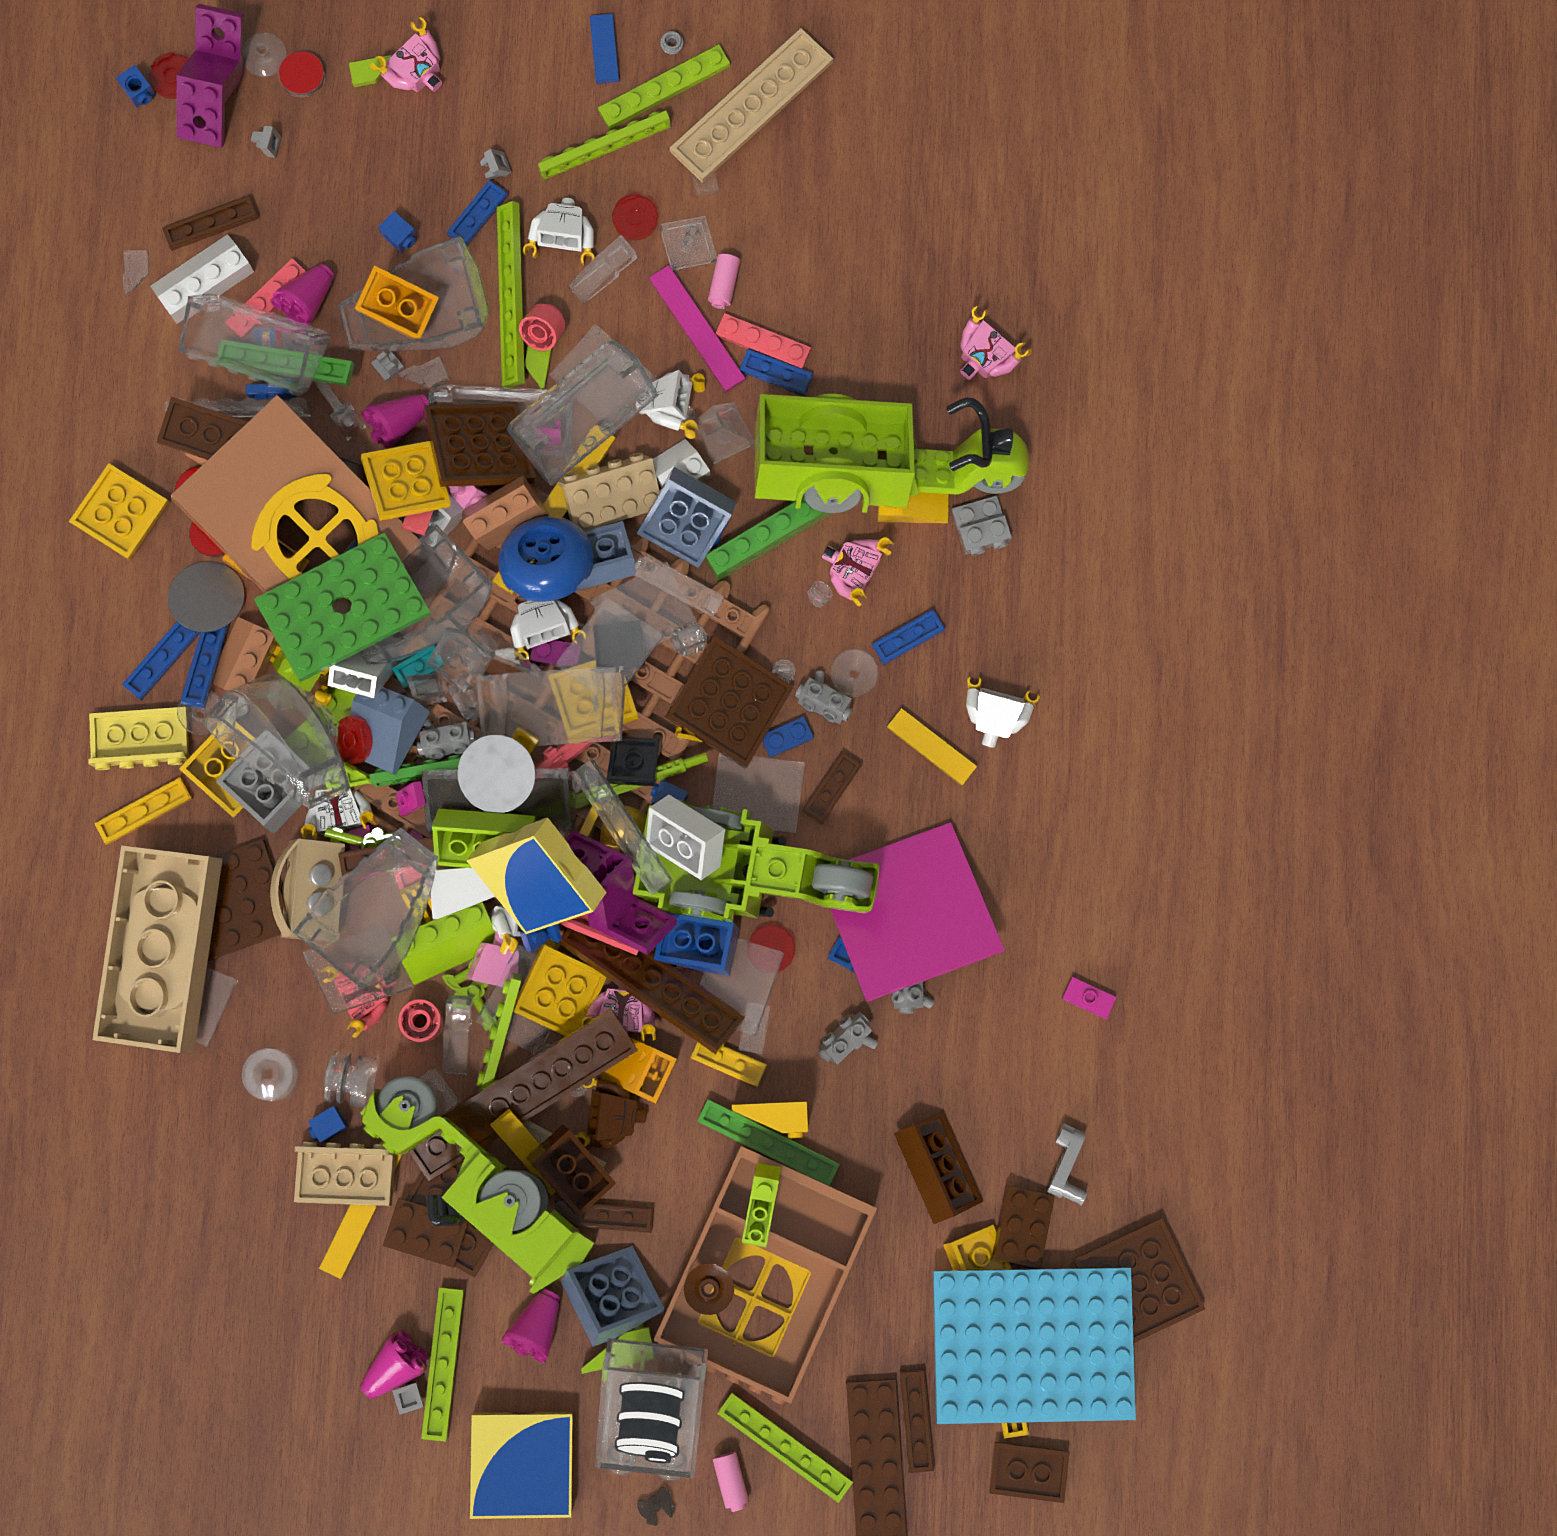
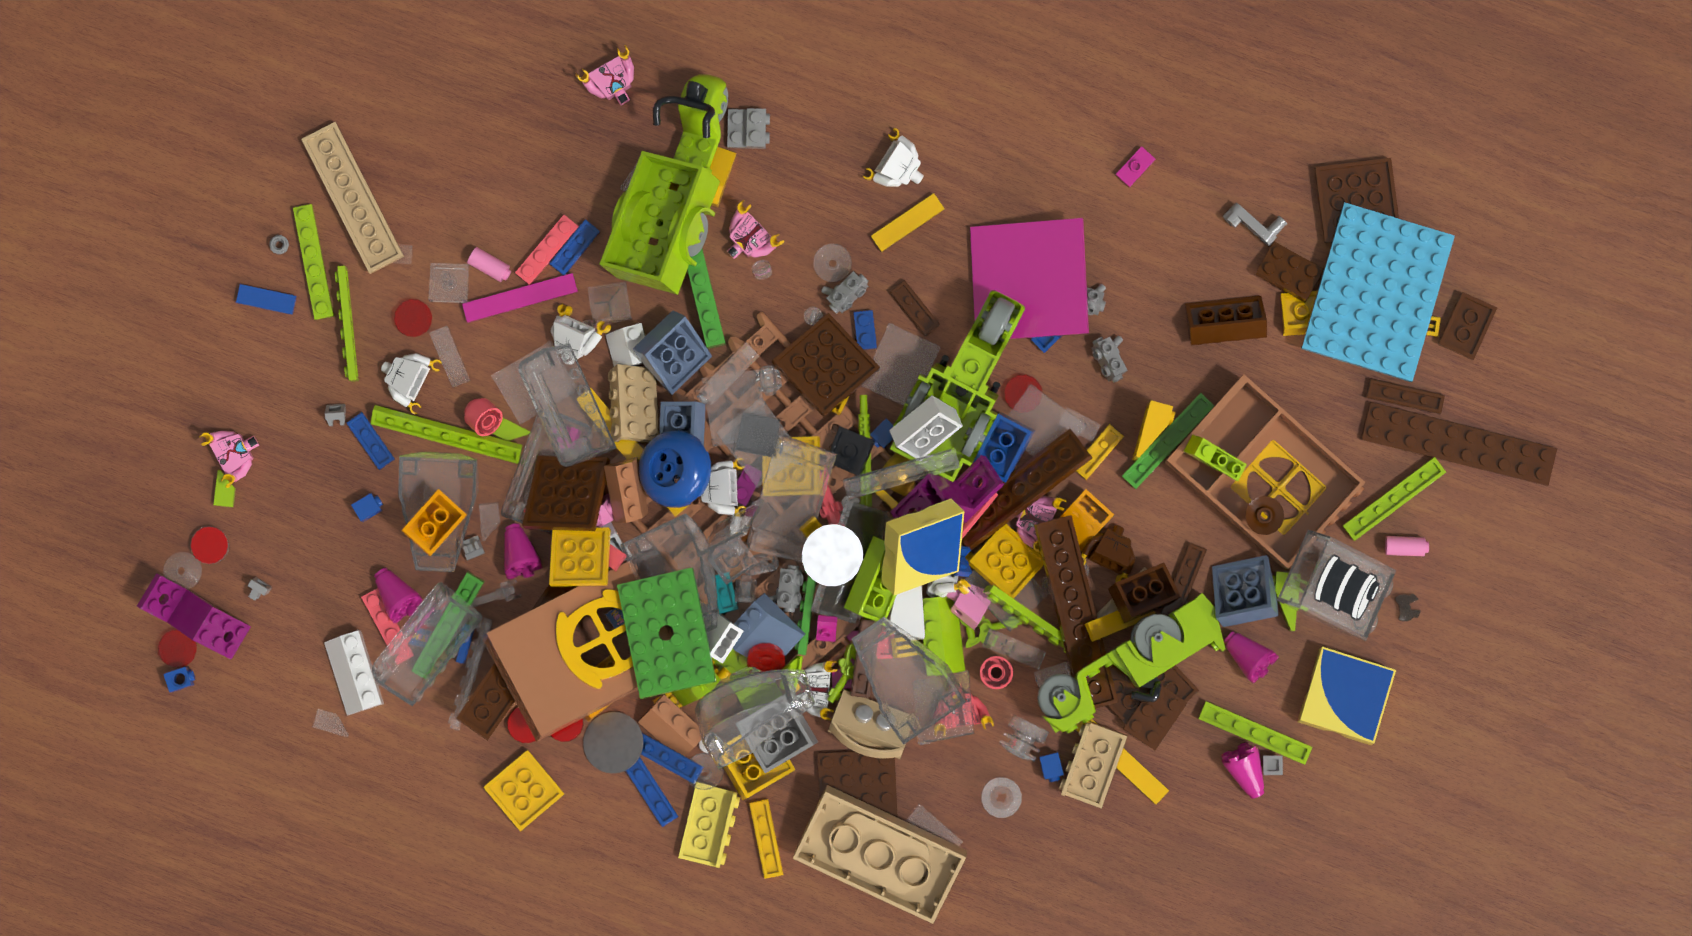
camera: 65 degrees left, 5 degrees up
(210, 223) = (310, 653): reddish brown tile -> none
(908, 637) = (816, 213): blue tile -> none

